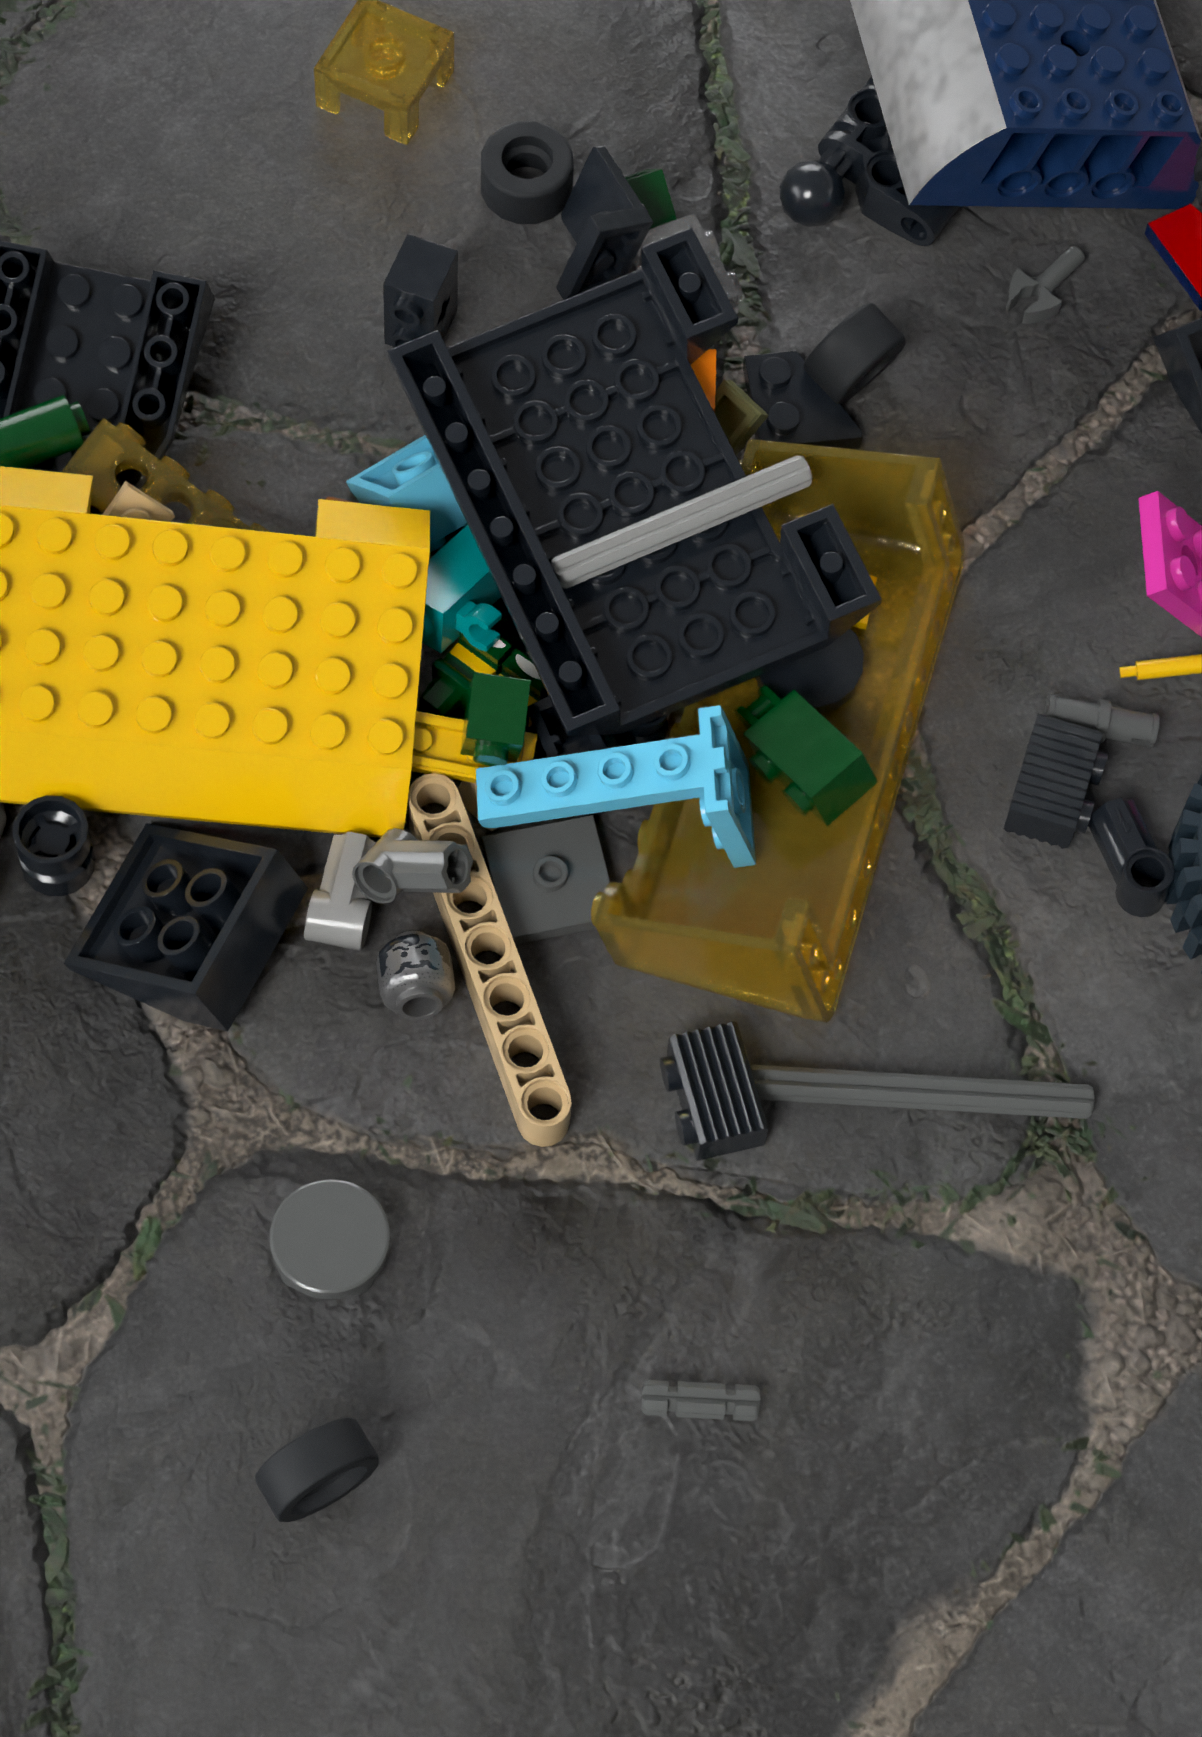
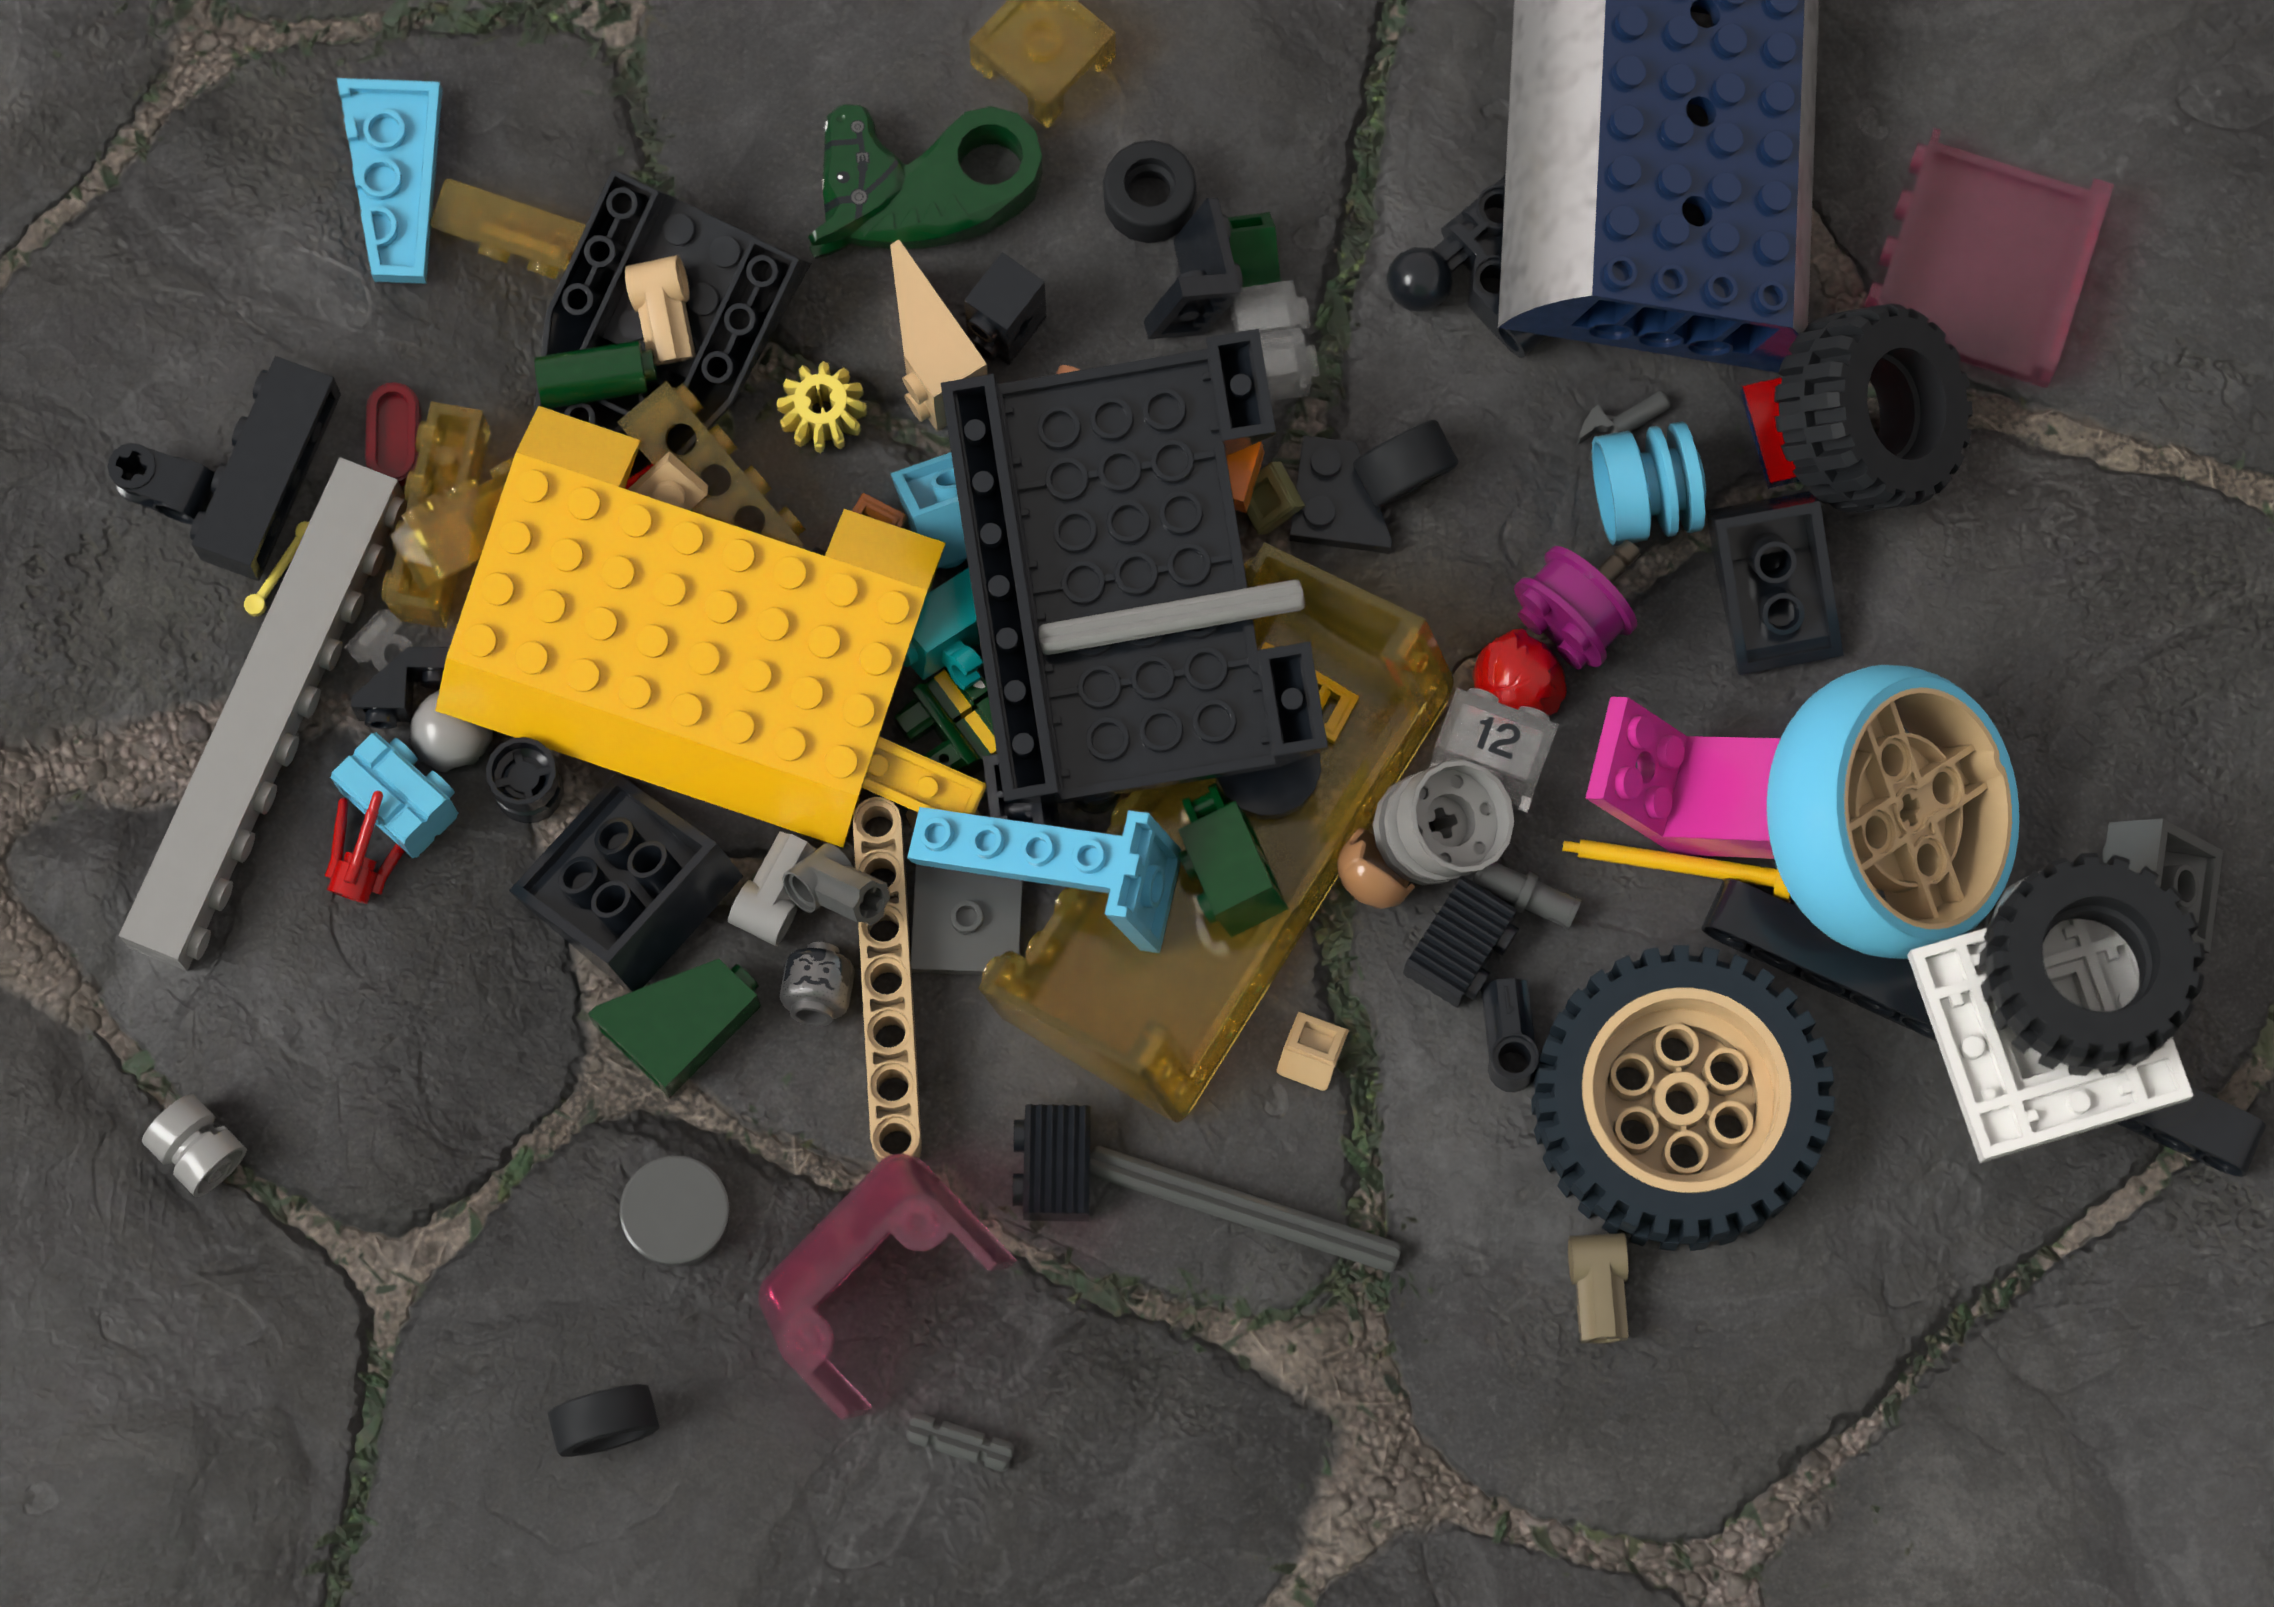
camera: 20 degrees right, 10 degrees up
(73, 357) = (659, 295): none -> tan piece
(260, 431) = (825, 425): none -> light yellow gear
(278, 1047) = (679, 1020): none -> dark green slope
(311, 225) = (924, 203): none -> dark green animal
(352, 341) = (932, 341): none -> tan slope
(485, 1281) = (893, 1198): none -> clear pink windscreen
(495, 718) = (946, 768): dark green brick -> none
(938, 924) = (1312, 1051): none -> tan slope
(945, 737) = (1367, 875): none -> medium nougat hair
(1005, 665) = (1469, 818): none -> light grey wheel
(1027, 525) = (1521, 672): none -> red hair
(1029, 588) = (1500, 738): none -> clear brick
(1065, 438) = (1578, 603): none -> magenta wheel
(1095, 318) = (1657, 482): none -> medium azure wheel

